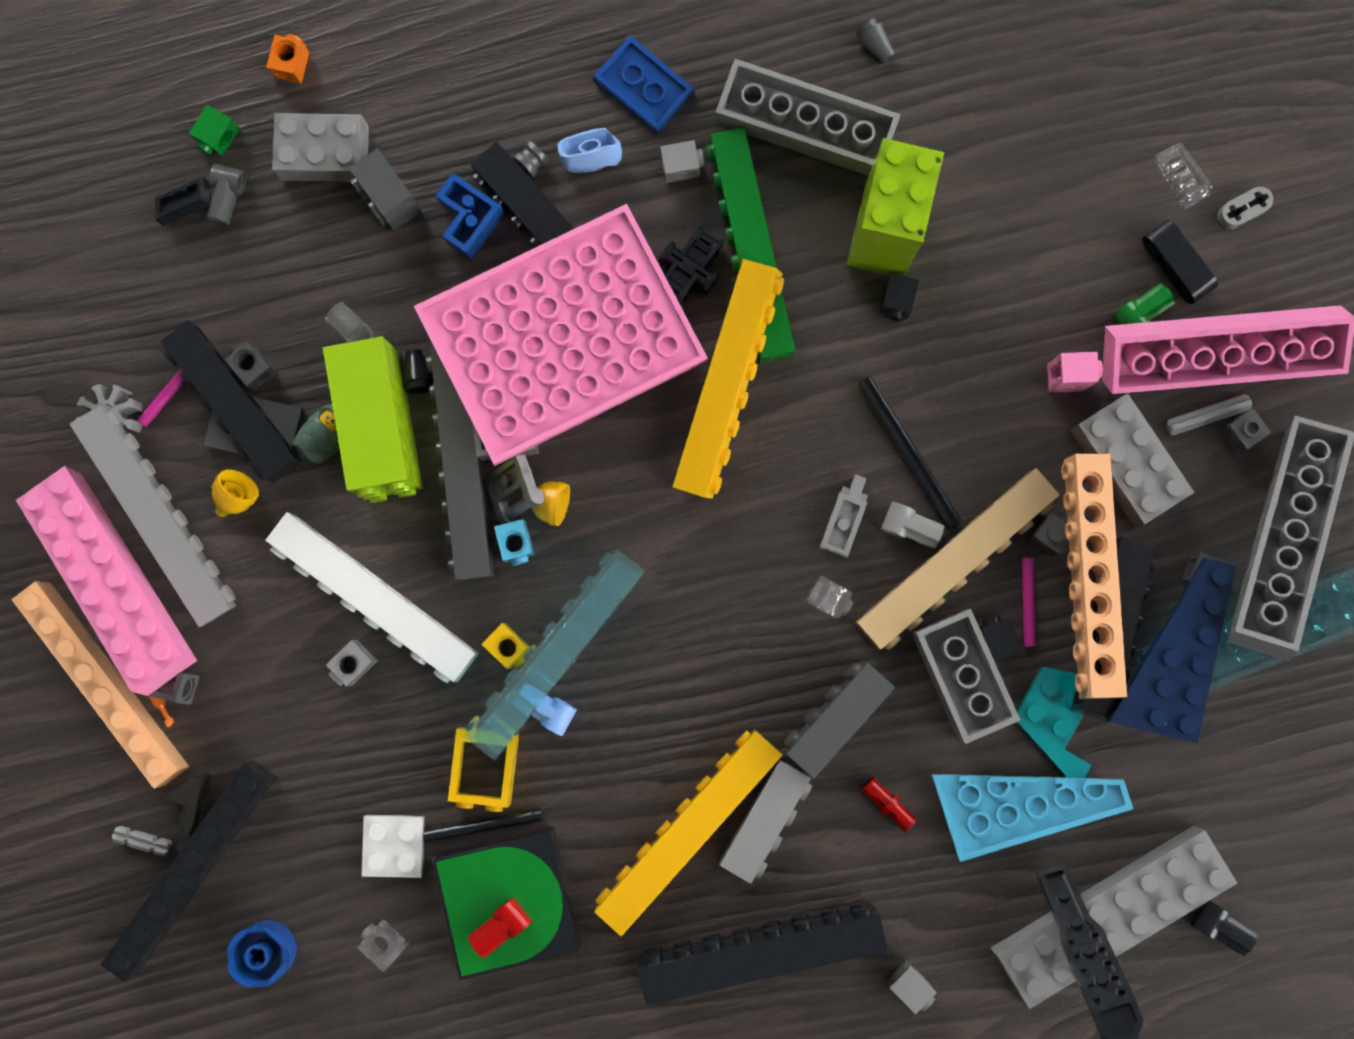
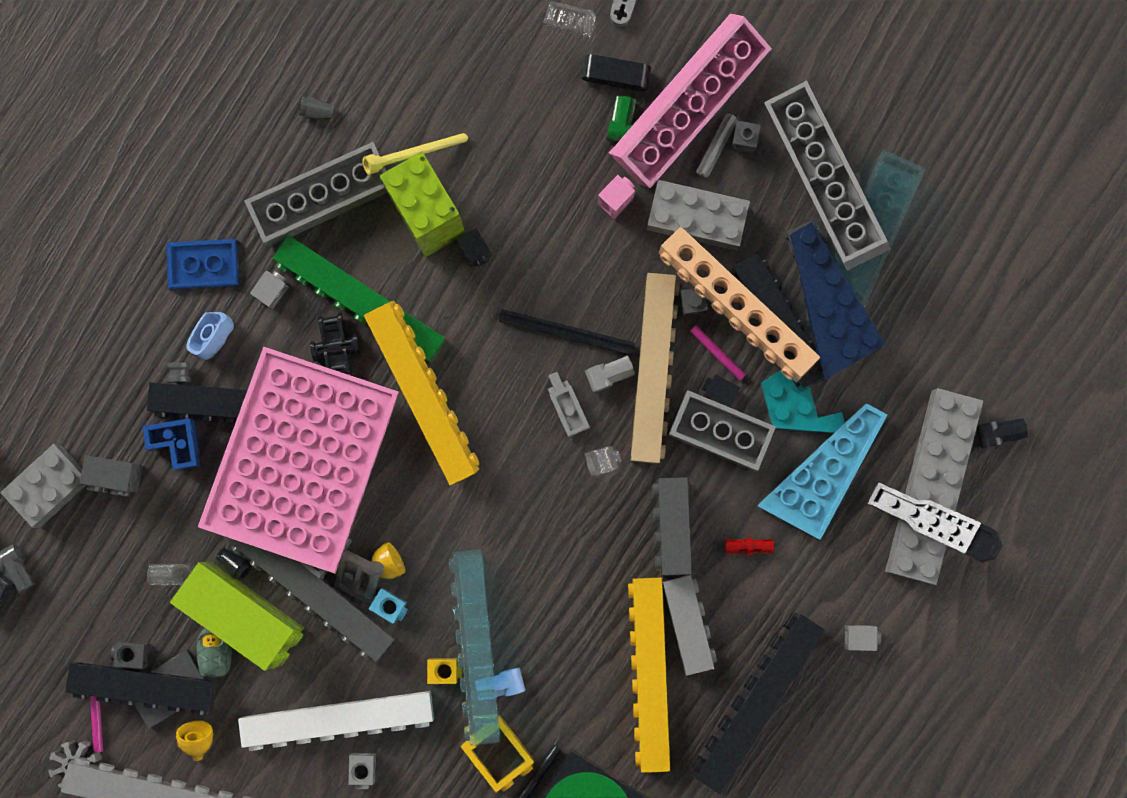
camera: 50 degrees left, 0 degrees up
(883, 129) = (373, 163): none -> light yellow piece

